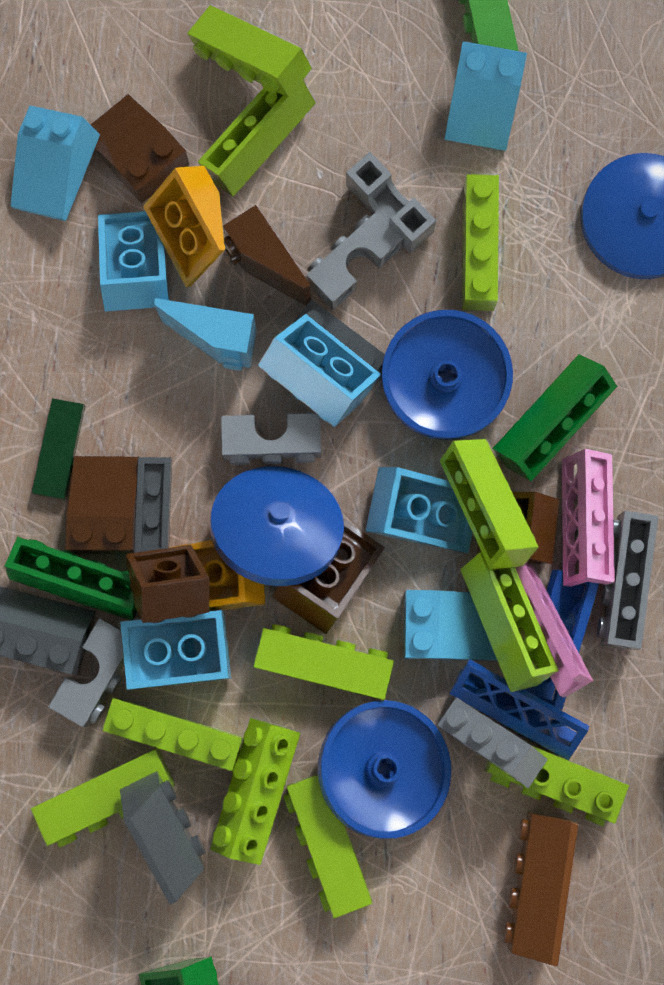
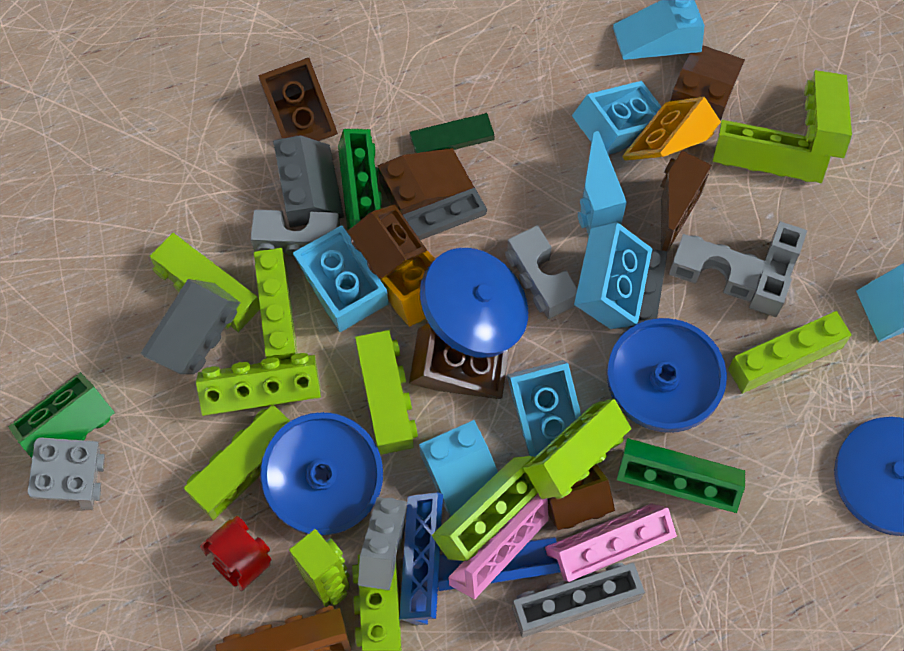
camera: 65 degrees right, 15 degrees down
(428, 893) = (237, 553): none -> red brick
(500, 817) = (322, 567): none -> lime brick

